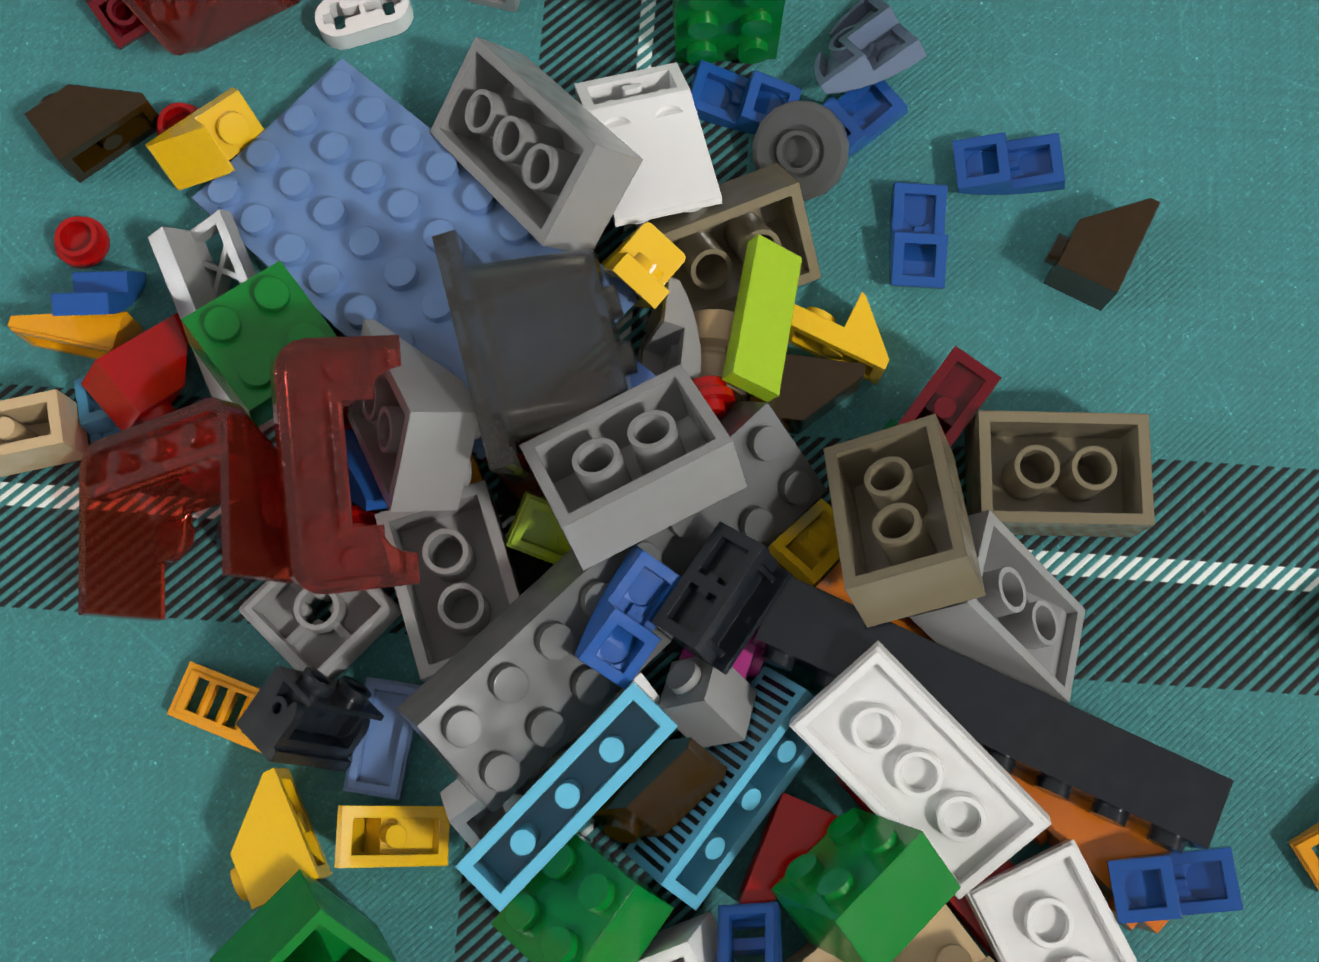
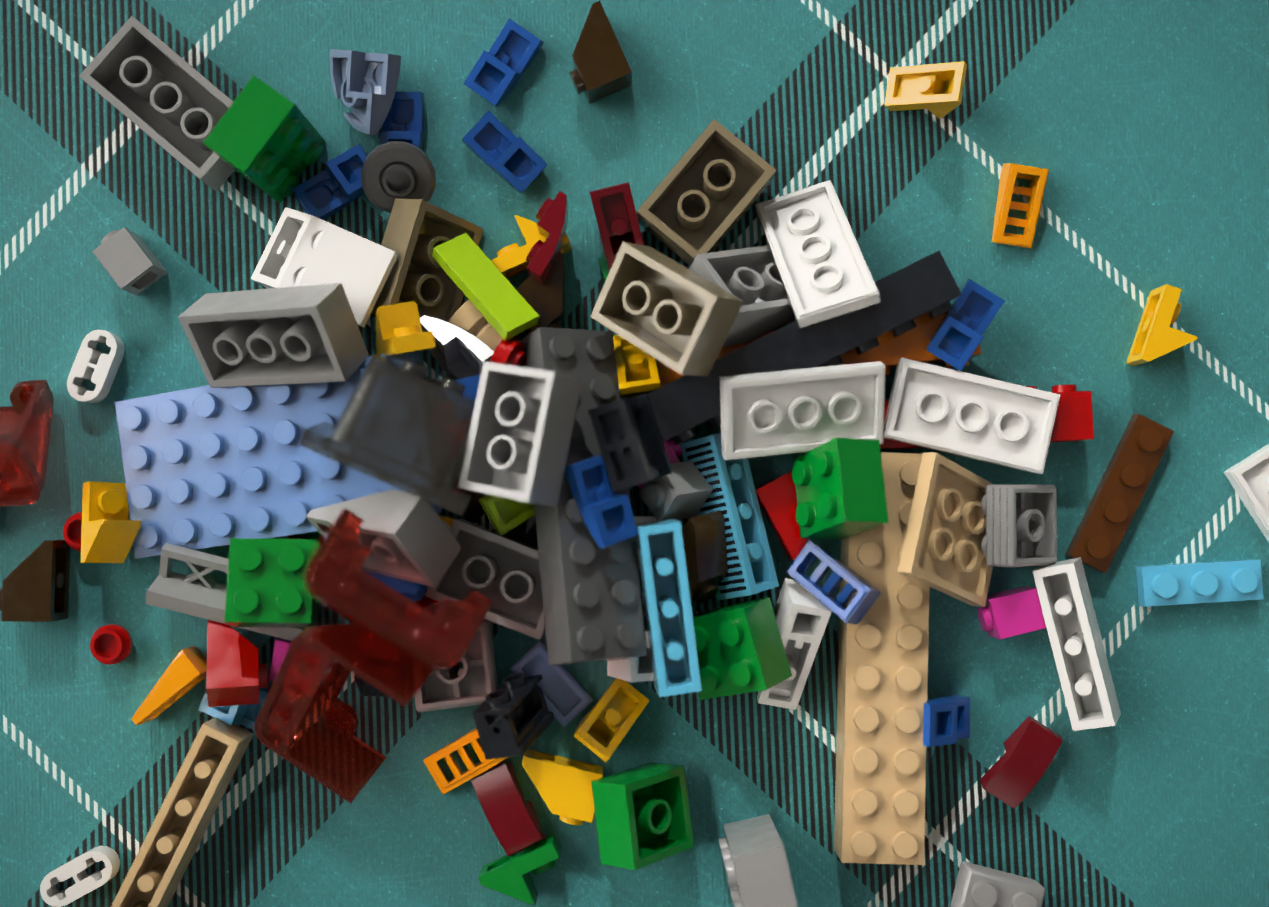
camera: 55 degrees left, 10 degrees up
(99, 293) = (158, 657): blue slope -> none
(128, 863) = (511, 873): none -> green slope
(198, 800) = (507, 810): none -> dark red slope
(886, 336) = (553, 226): none -> dark red slope
(1103, 647) = (816, 254): none -> white tile

